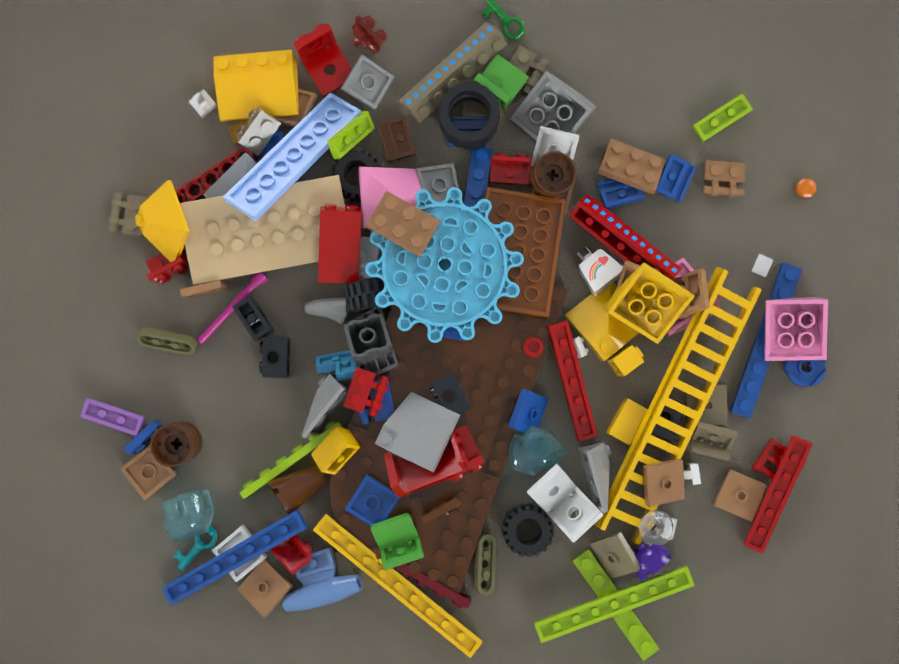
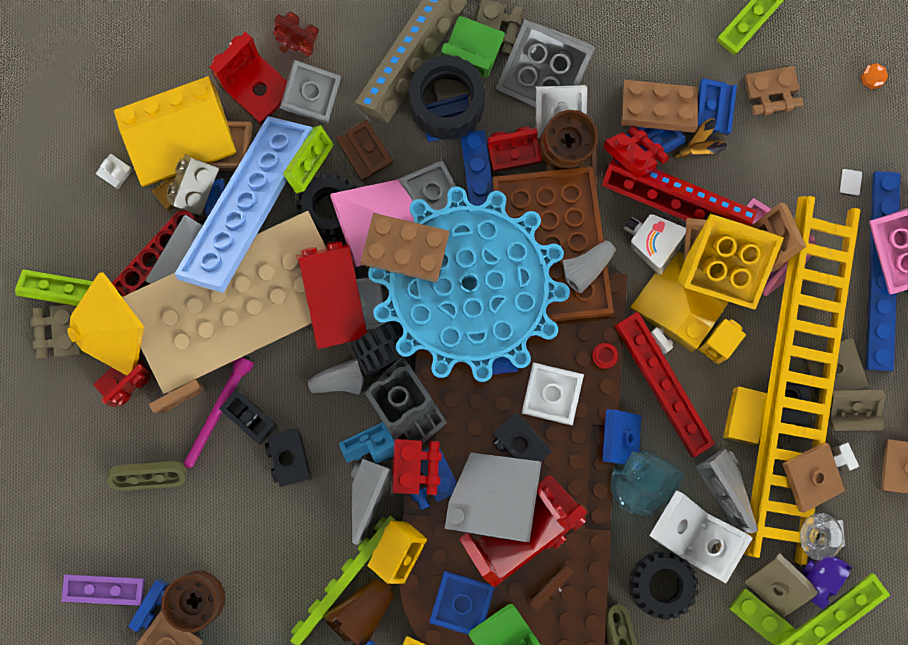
camera: 20 degrees left, 5 degrees down
(132, 179) = (51, 287): none -> lime plate
(485, 365) = (552, 394): none -> white plate
(536, 277) = (584, 269): none -> light grey piece
(597, 197) = (631, 155): none -> red plate
(653, 203) = (697, 143): none -> pearl gold piece

